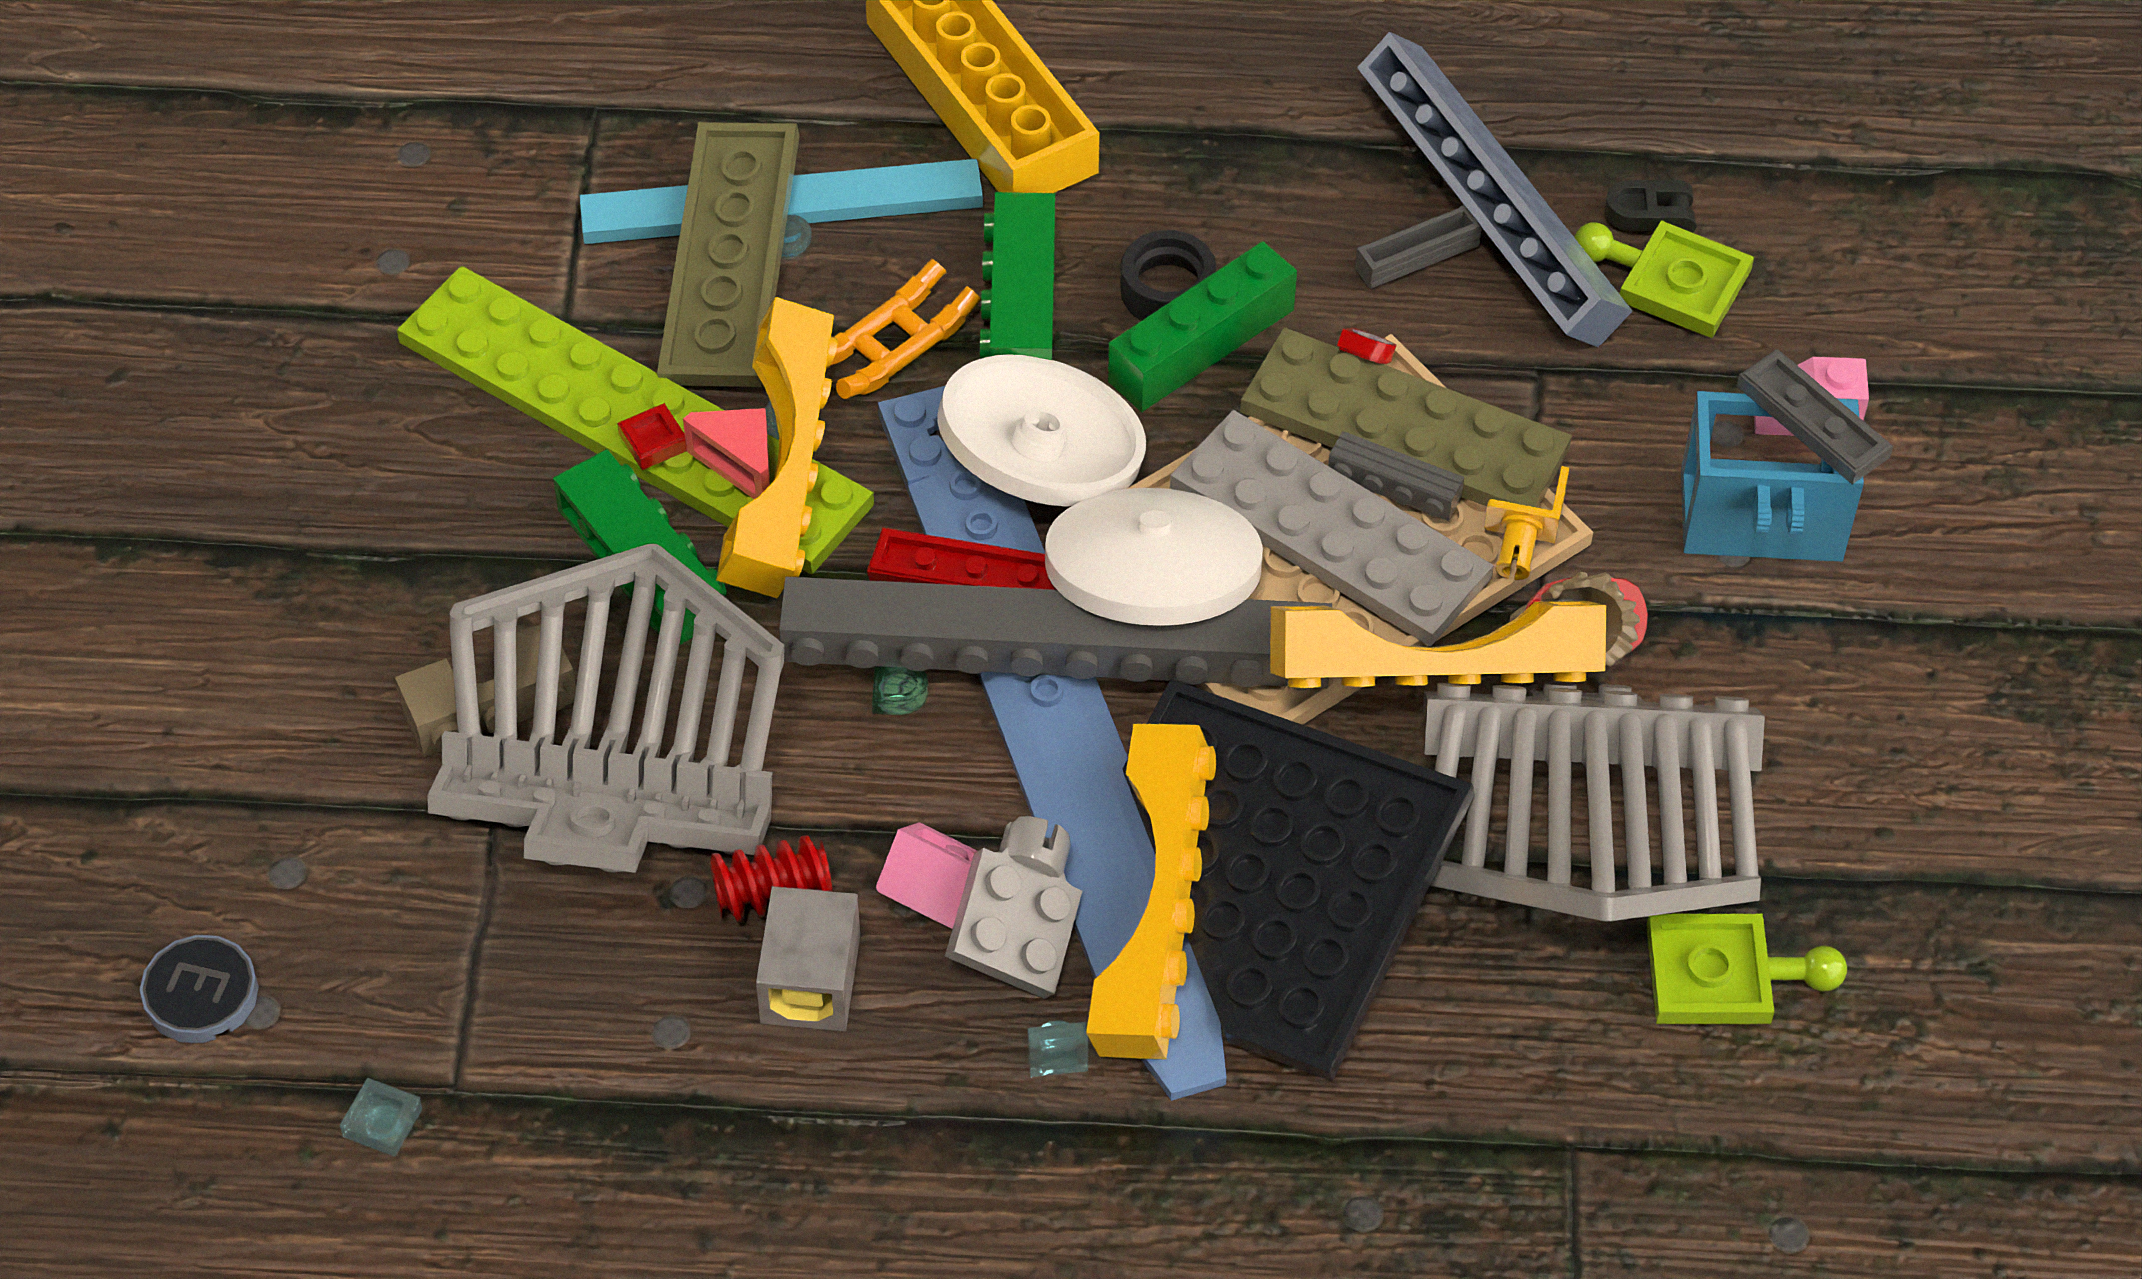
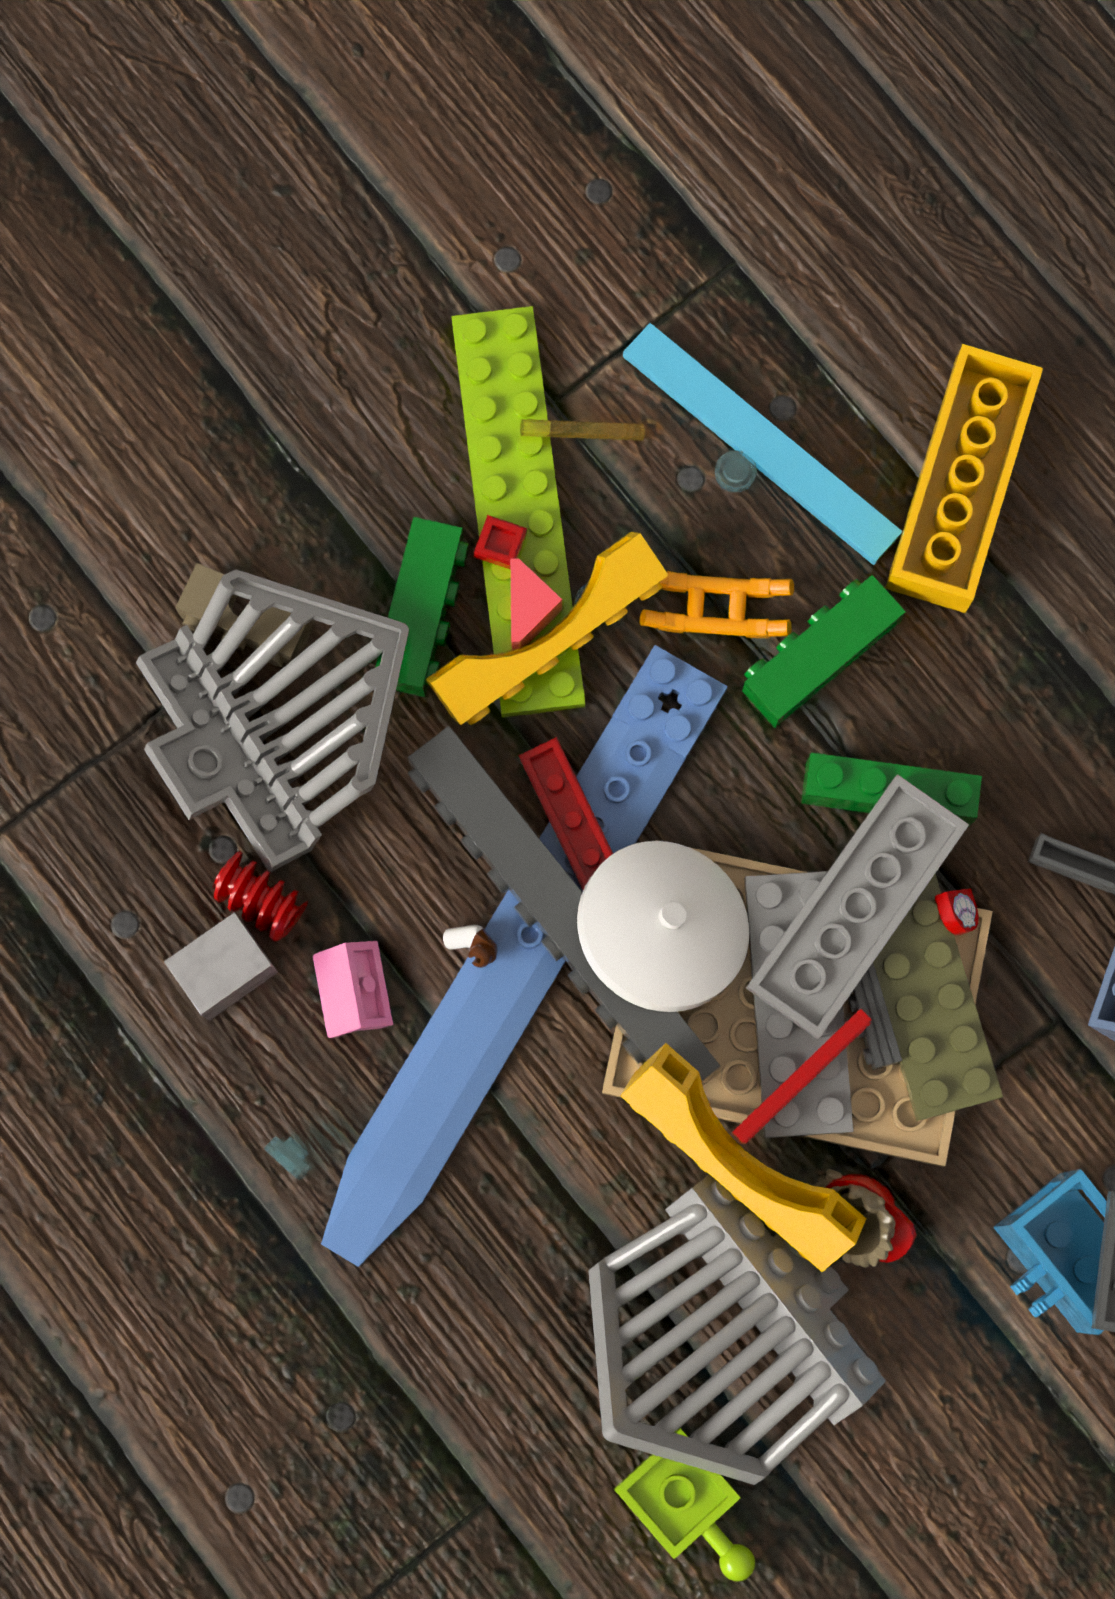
camera: 50 degrees right, 25 degrees up
(617, 309) = (581, 429): none -> clear yellow bar
(728, 252) = (682, 454): olive plate -> none
(898, 690) = (452, 847): clear green tile -> none
(1004, 732) = (476, 939): none -> arm
(1018, 908) = (354, 1057): light grey plate -> none
(1040, 429) = (710, 768): white dish -> none
(1135, 995) = (503, 1078): yellow arch -> none
(1156, 249) = (924, 702): black tyre -> none
(1290, 400) = (857, 907): none -> light grey plate
(1304, 873) = (522, 1188): black plate -> none
(1406, 547) = (801, 1077): none -> red tile
(1522, 527) = (895, 1128): yellow bracket -> none

